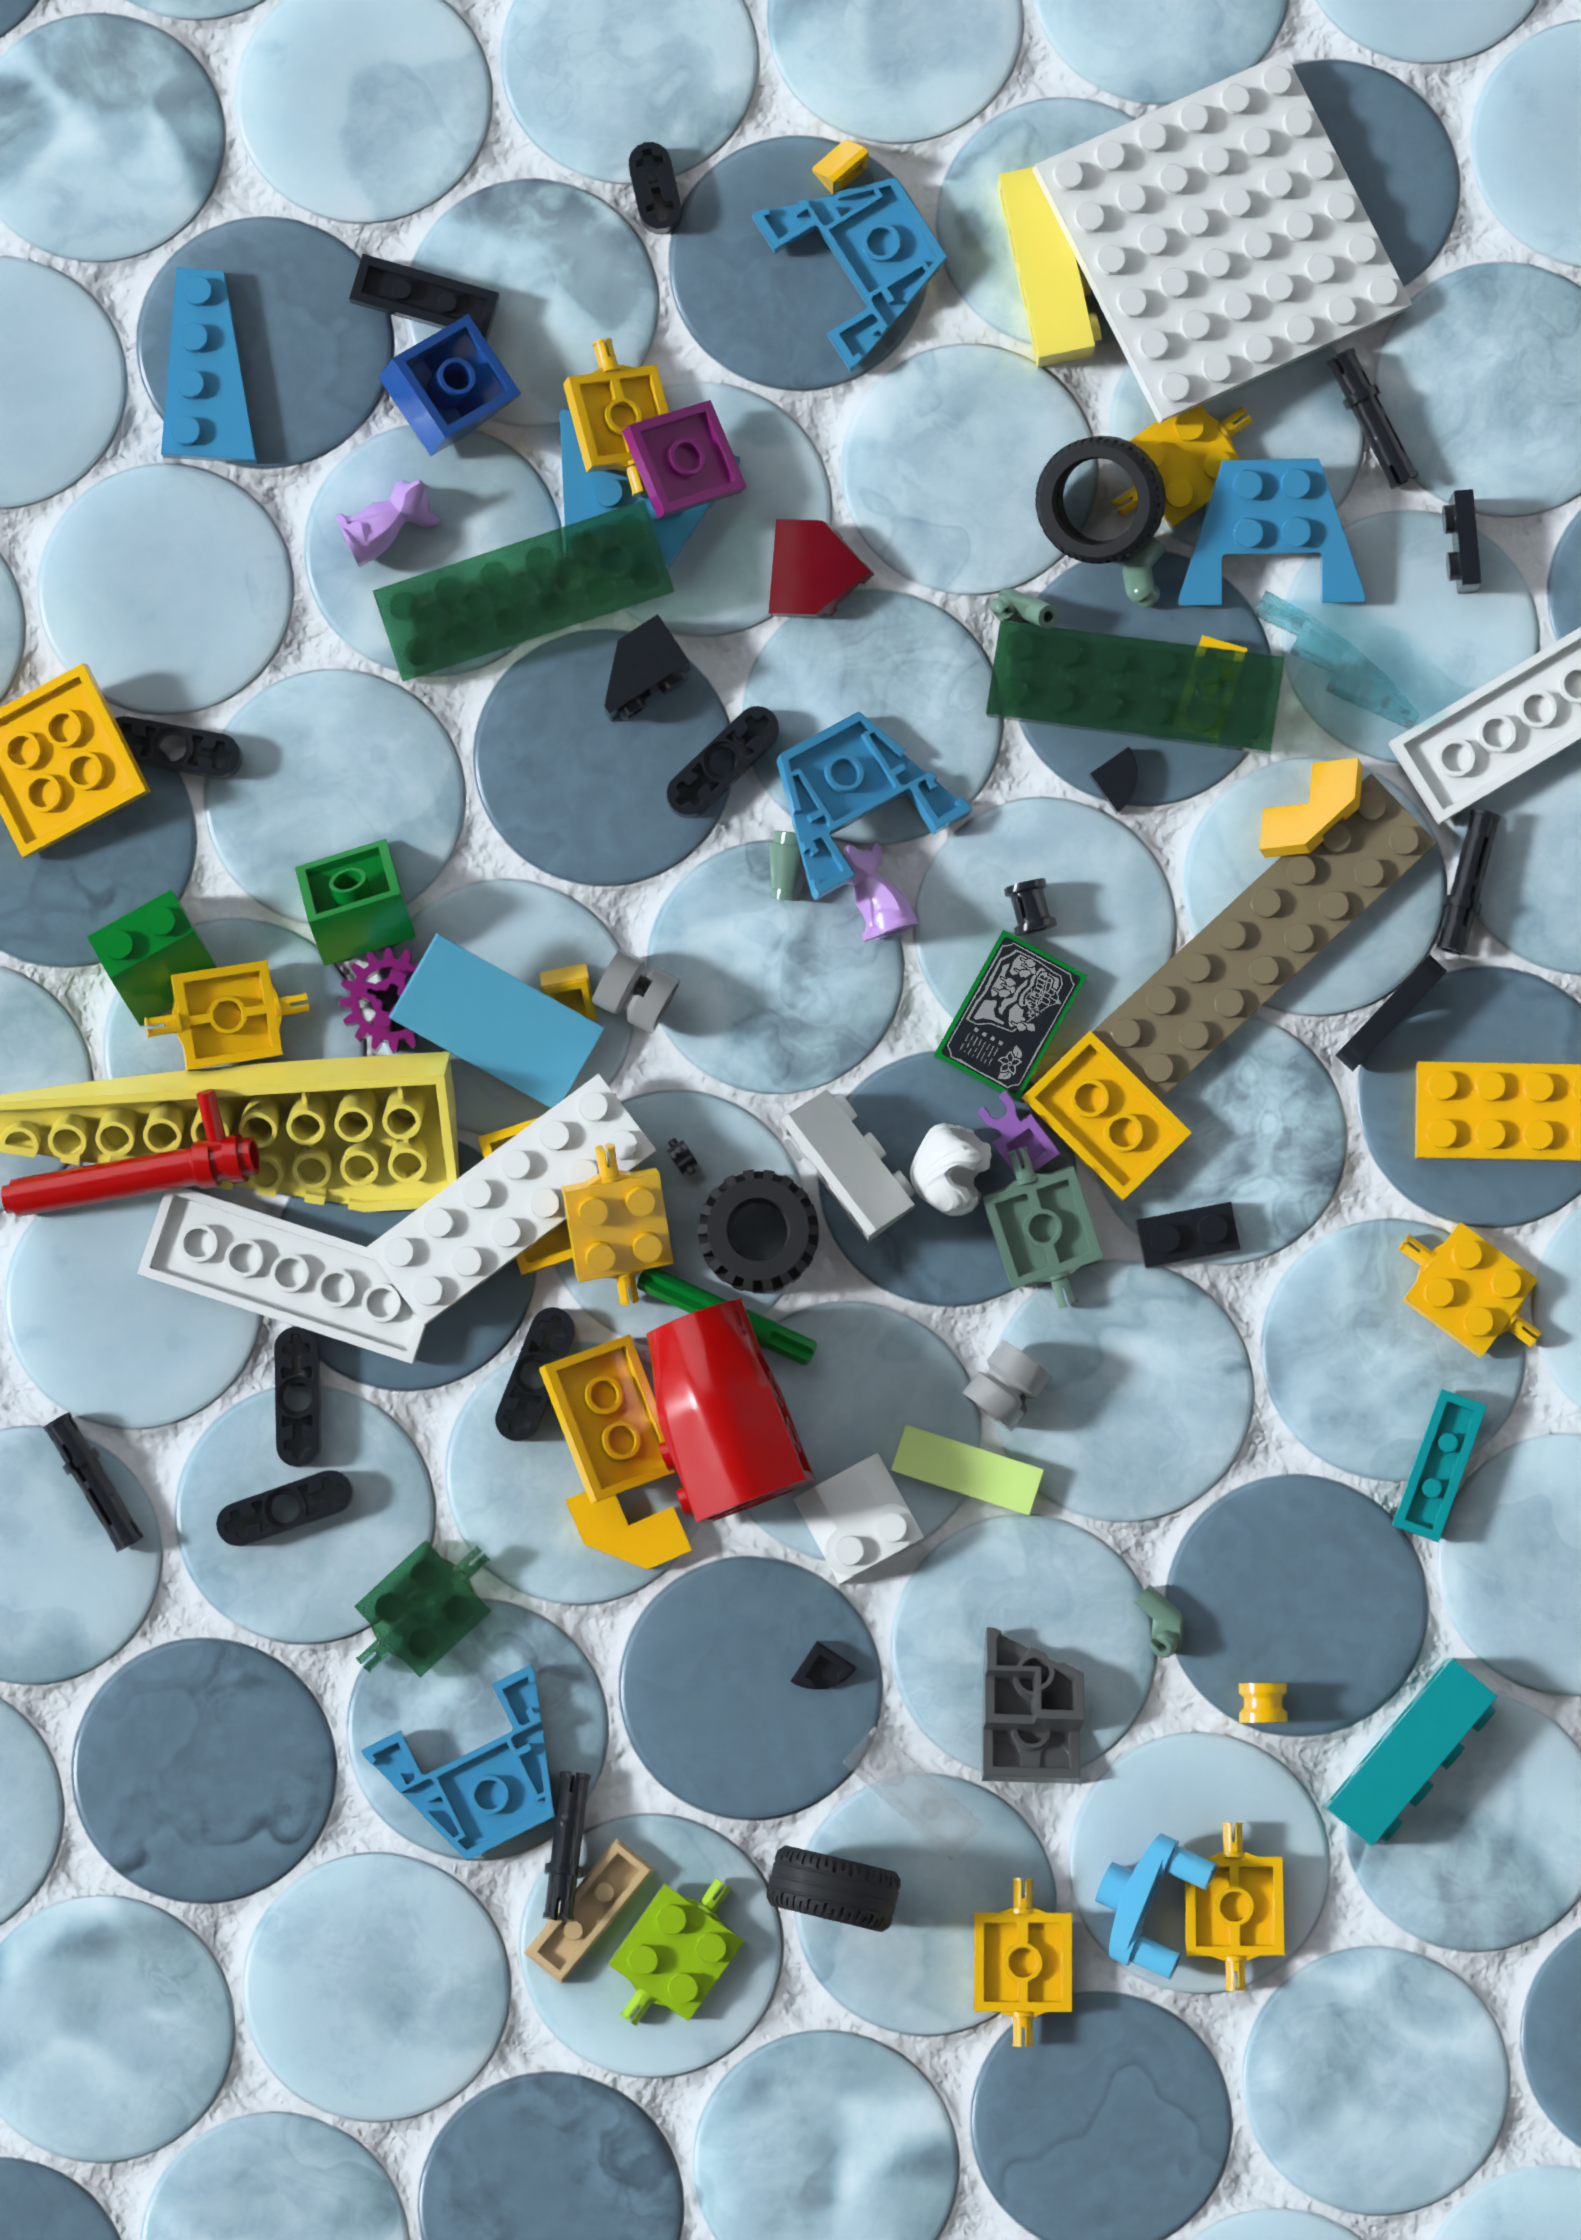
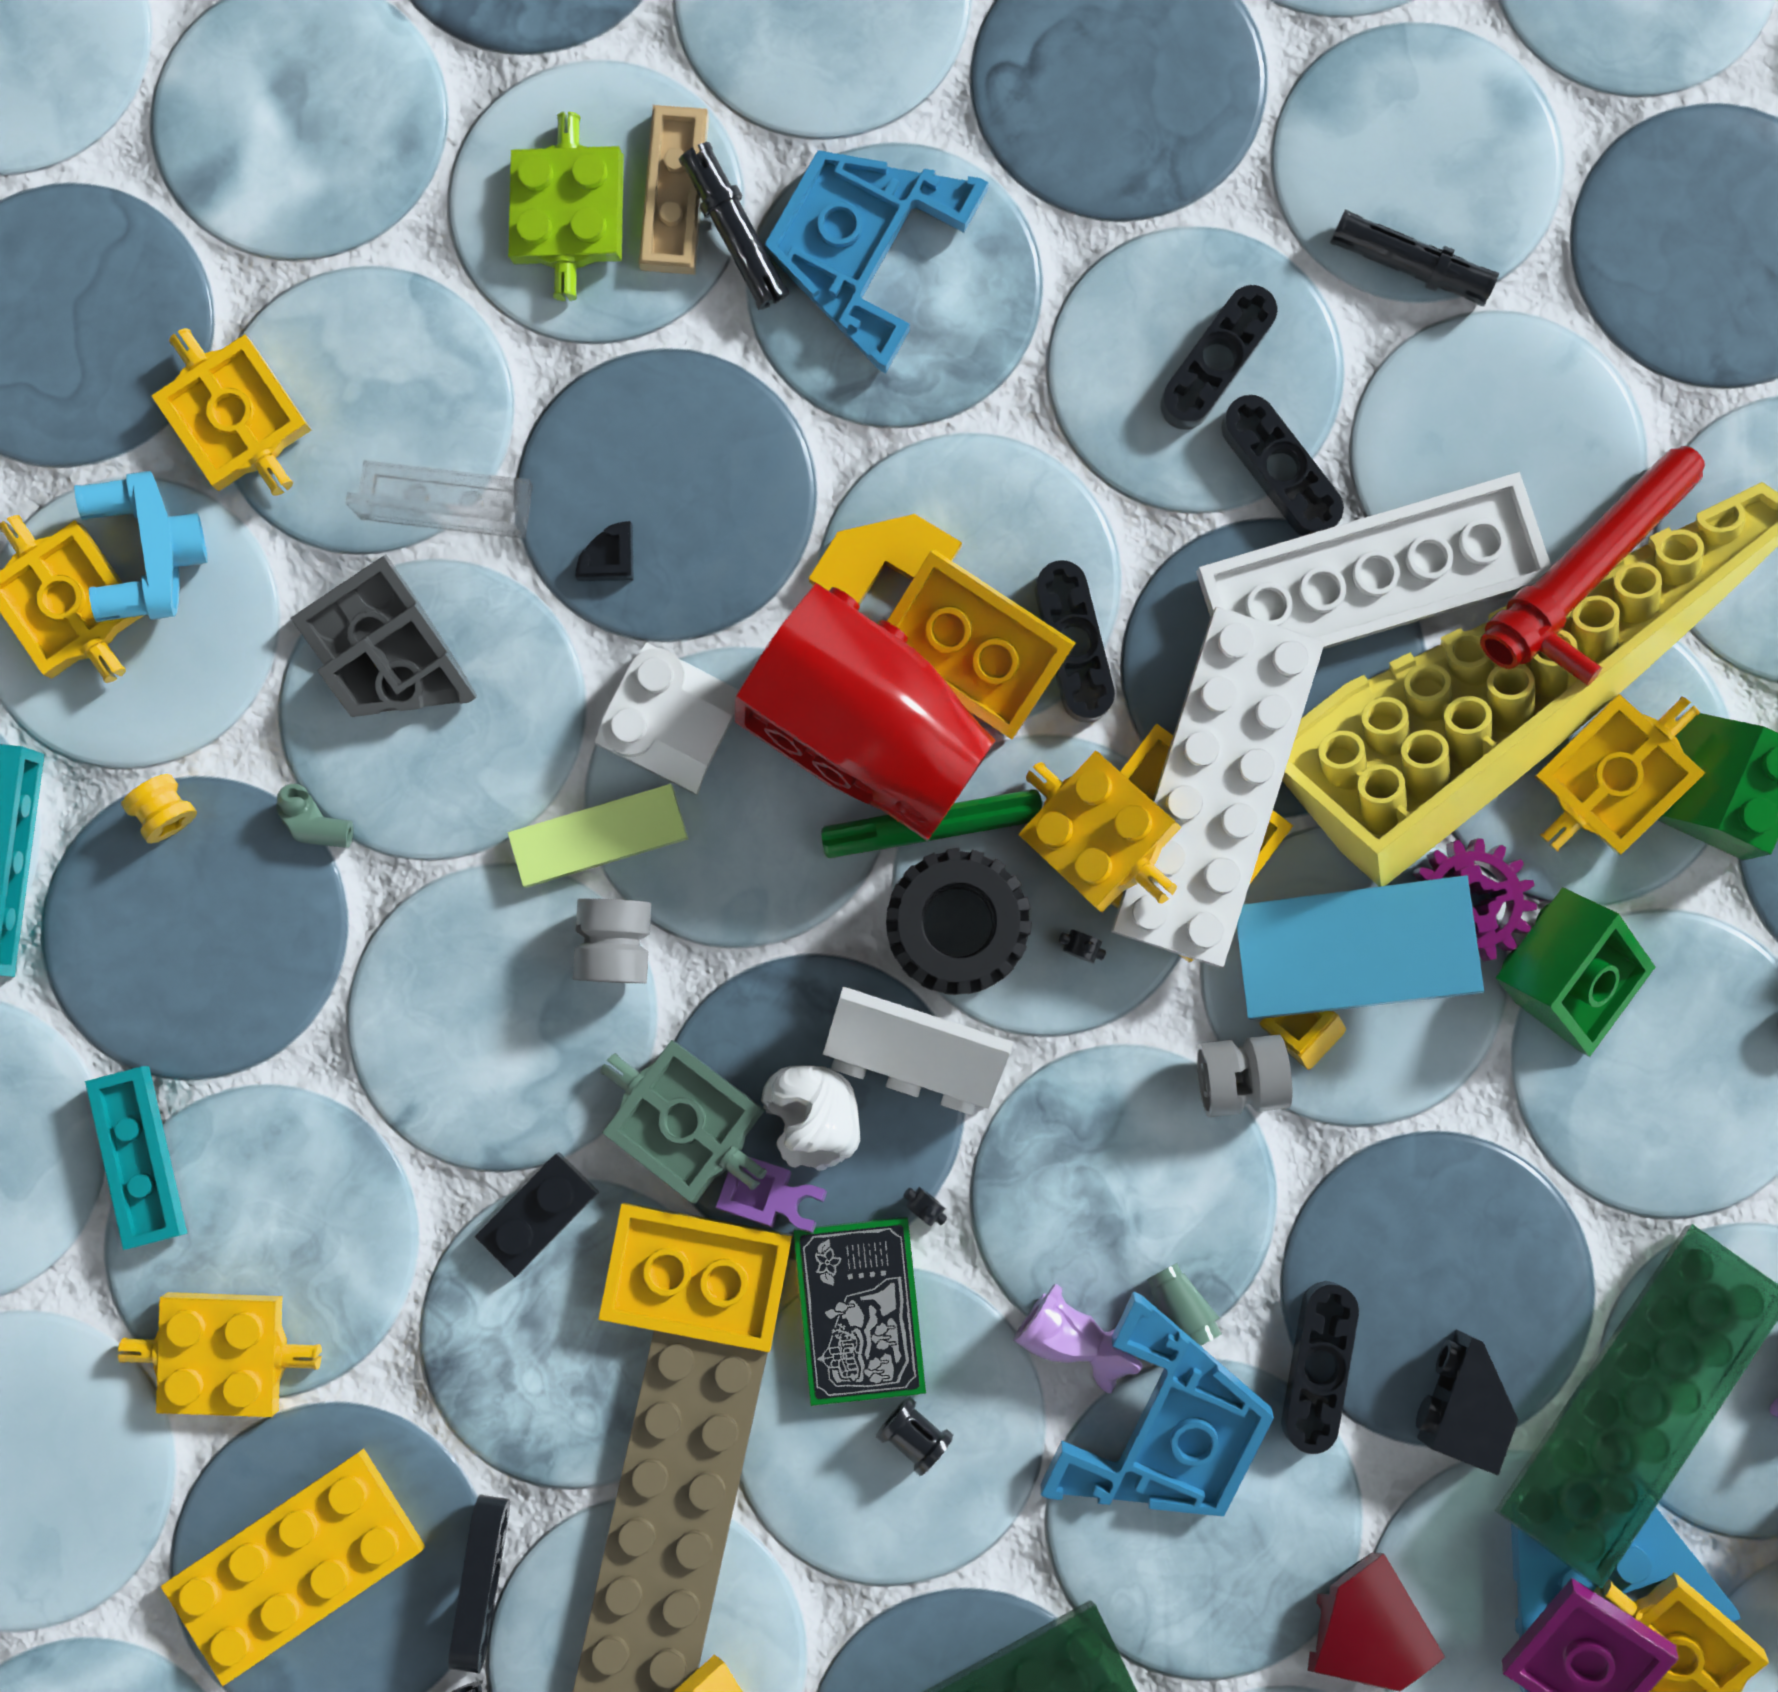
camera: 140 degrees right, 0 degrees up
(423, 1608) = (1023, 351): clear green plate -> none
(833, 1888) = (447, 343): black tyre -> none
(916, 1054) = (925, 1206): none -> black piece
(1117, 779) = (917, 1629): black tile -> none

